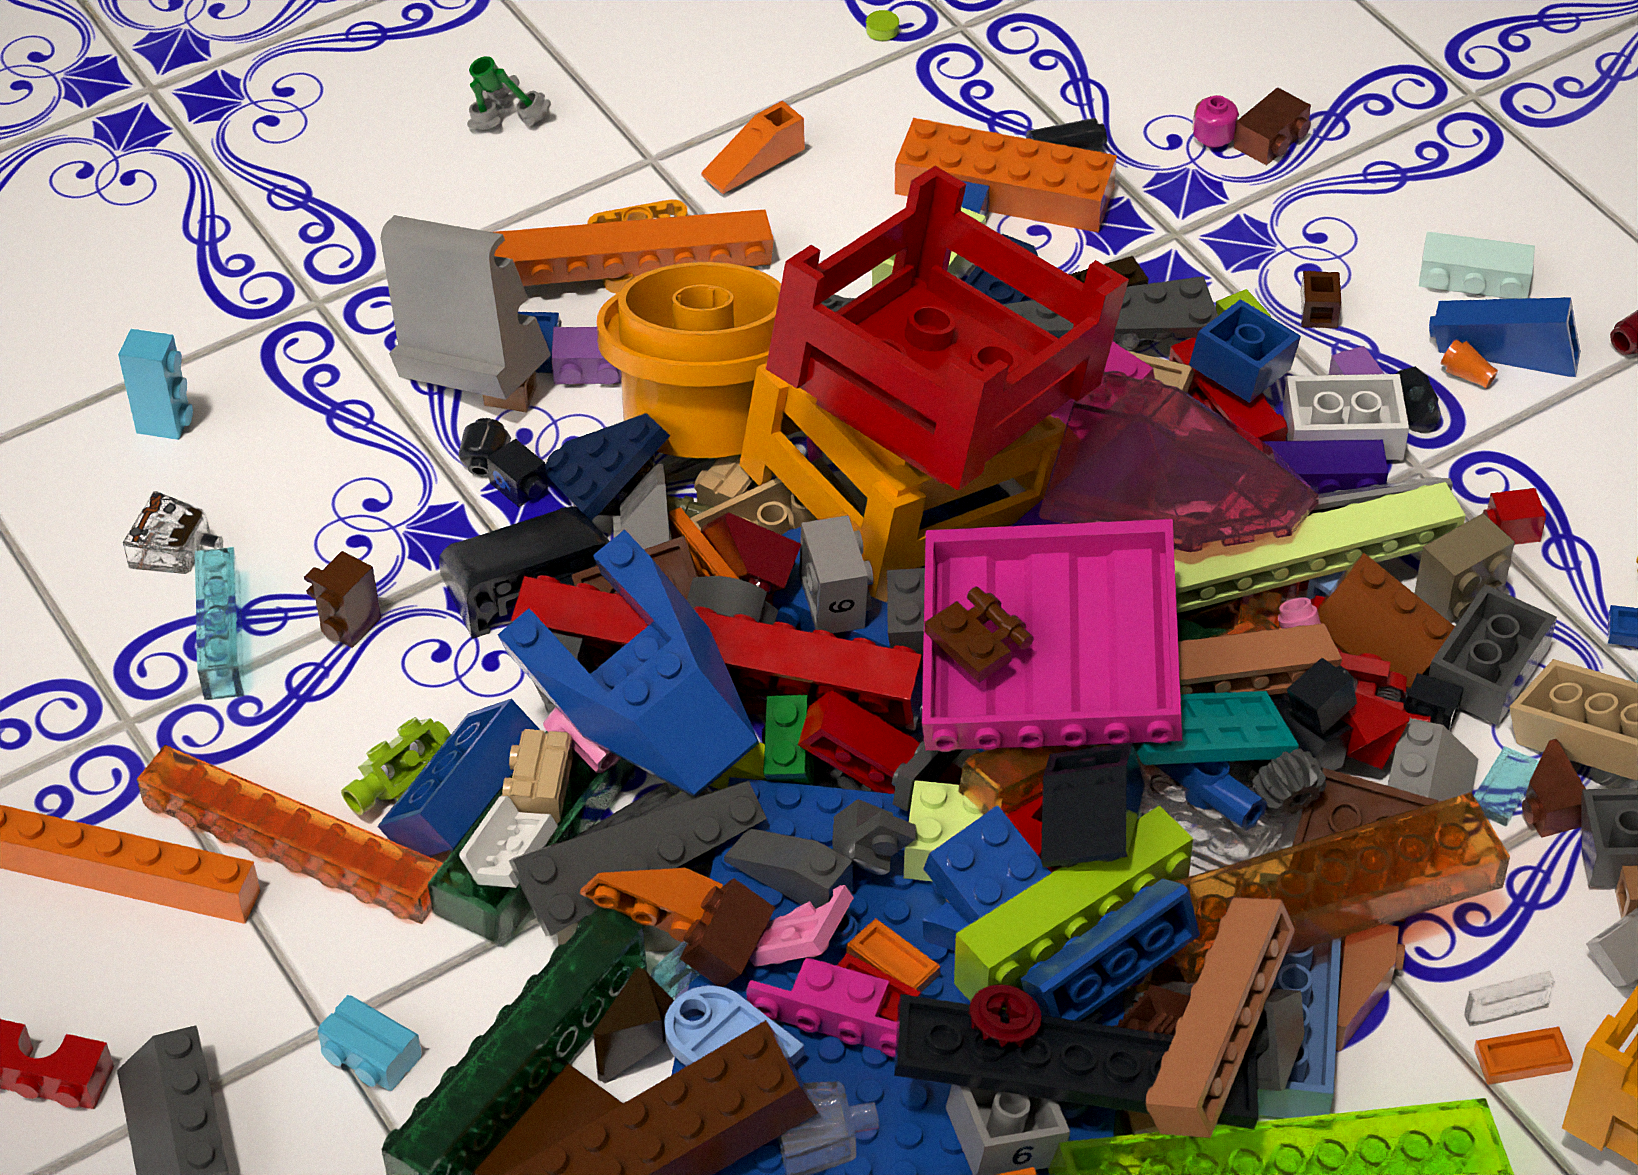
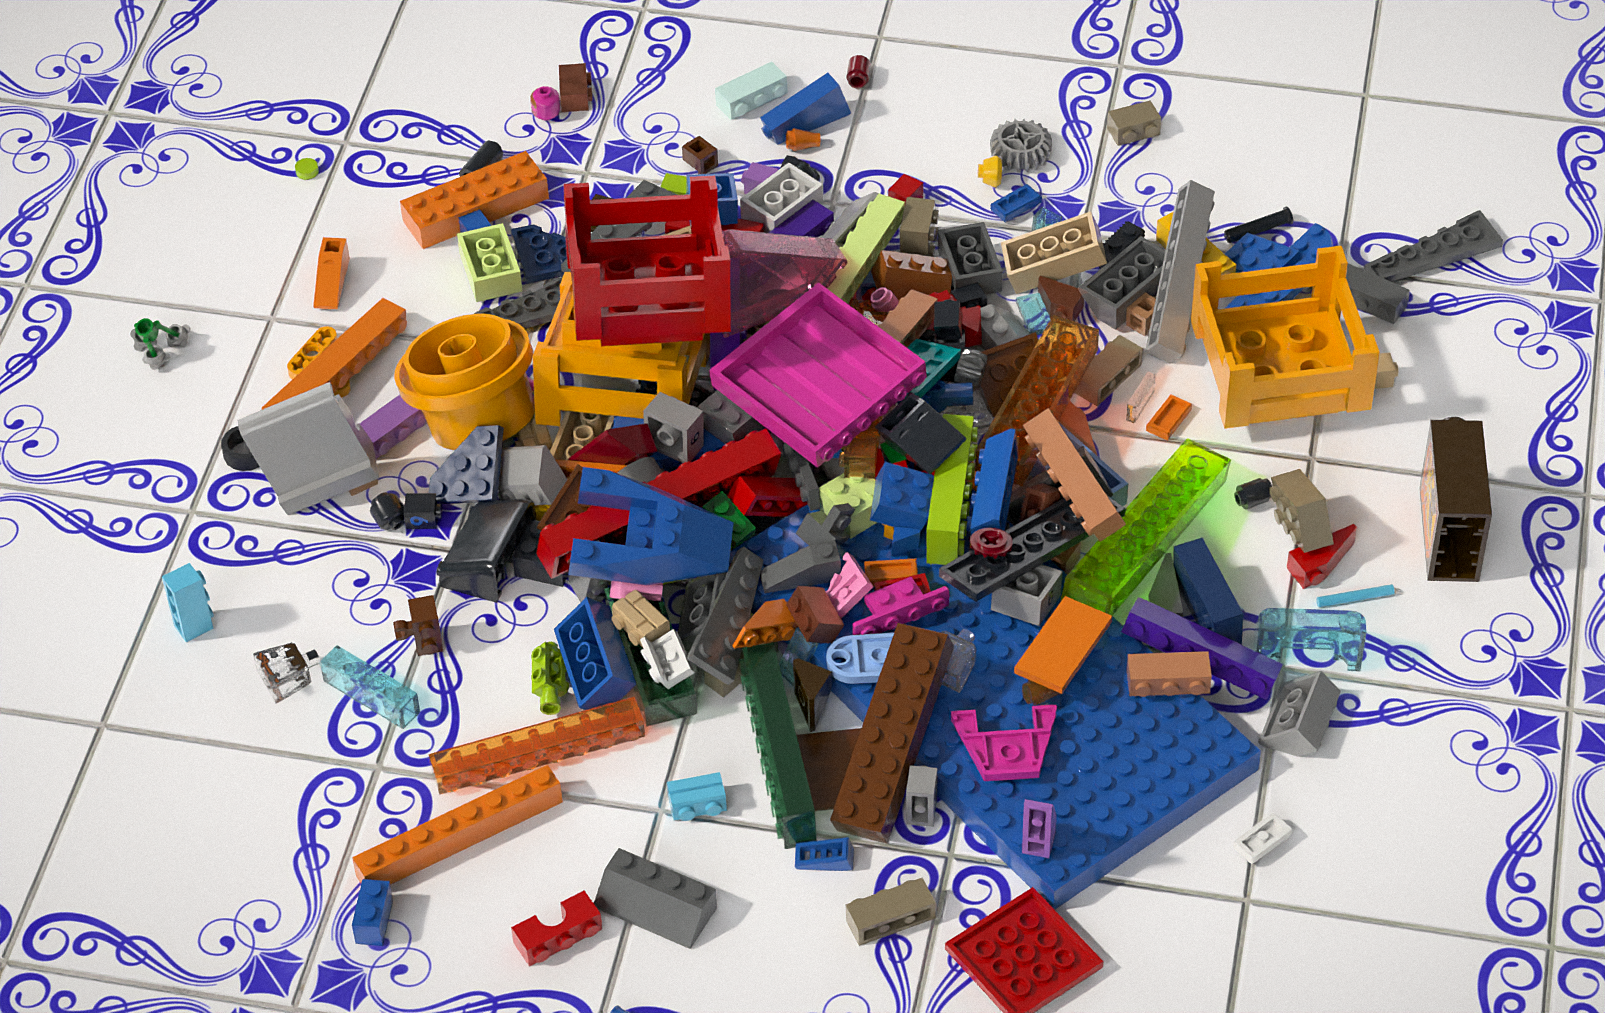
camera: 45 degrees left, 0 degrees up
(970, 642) = (793, 400): reddish brown plate -> none
(1509, 929) = (1109, 369): none -> dark tan brick

